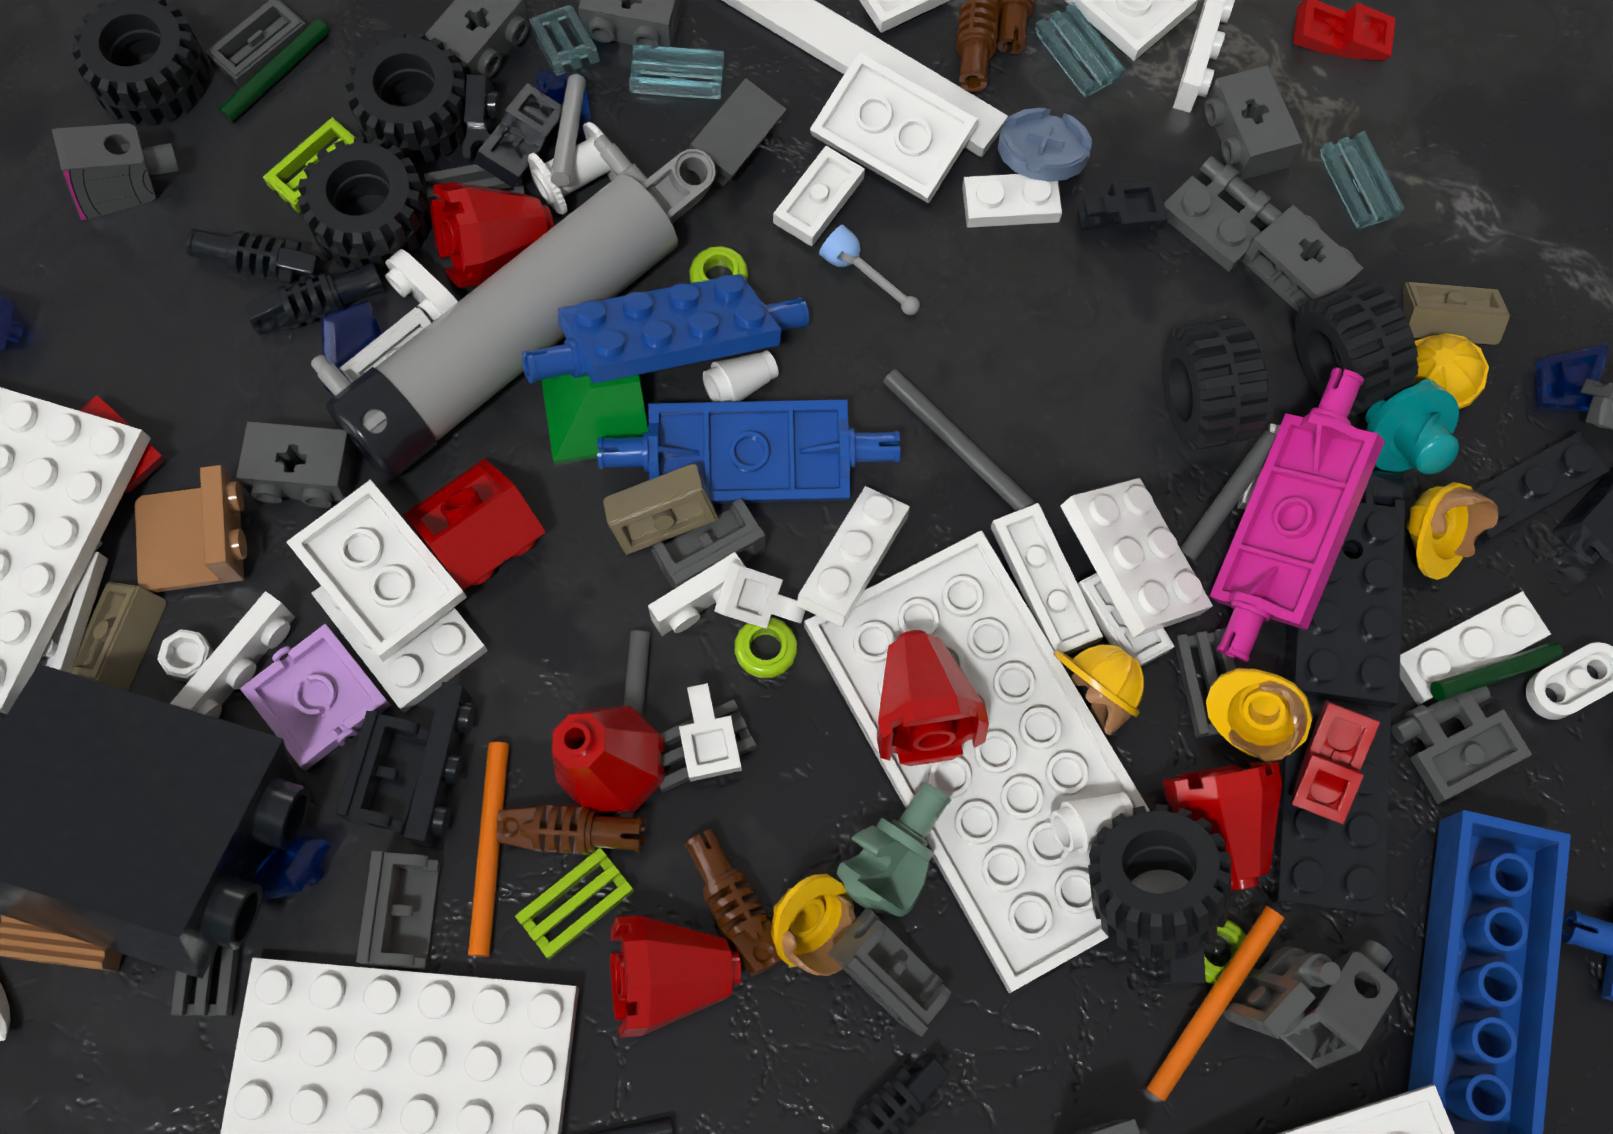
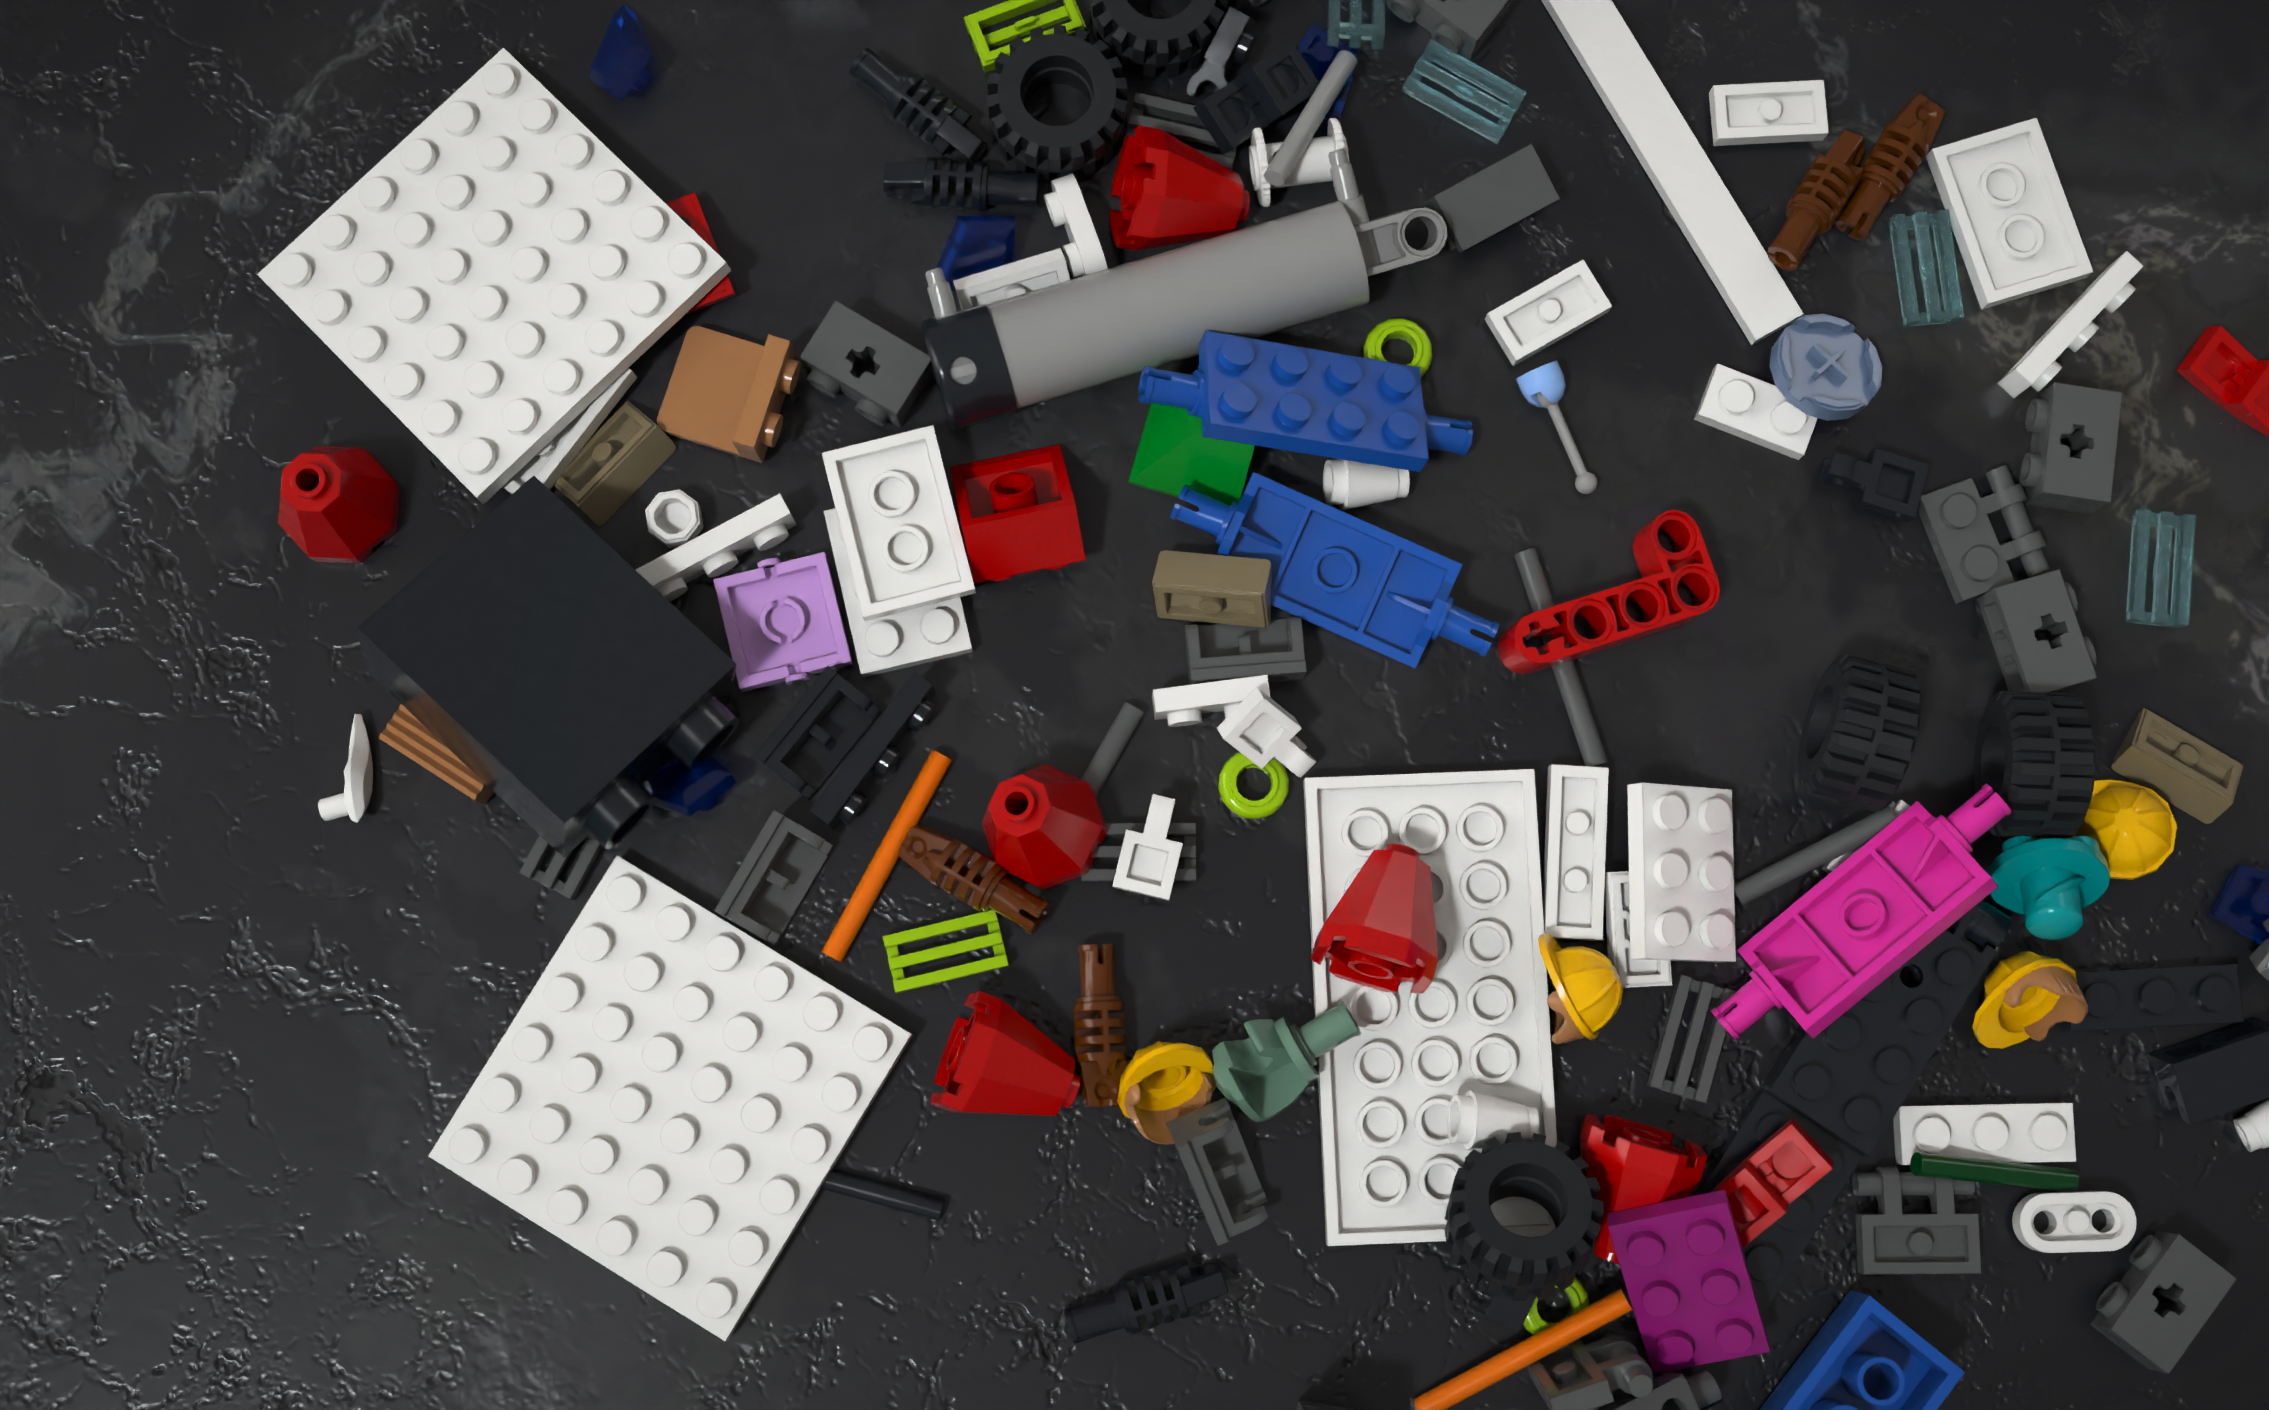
camera: 25 degrees right, 10 degrees up
(853, 556) = (1388, 733): white plate -> none
(894, 127) = (1668, 271): white plate -> none
(1003, 356) = (1606, 609): none -> red beam
(1259, 713) = (1717, 1098): yellow piece -> none
(1317, 870) = (1688, 1281): none -> magenta plate

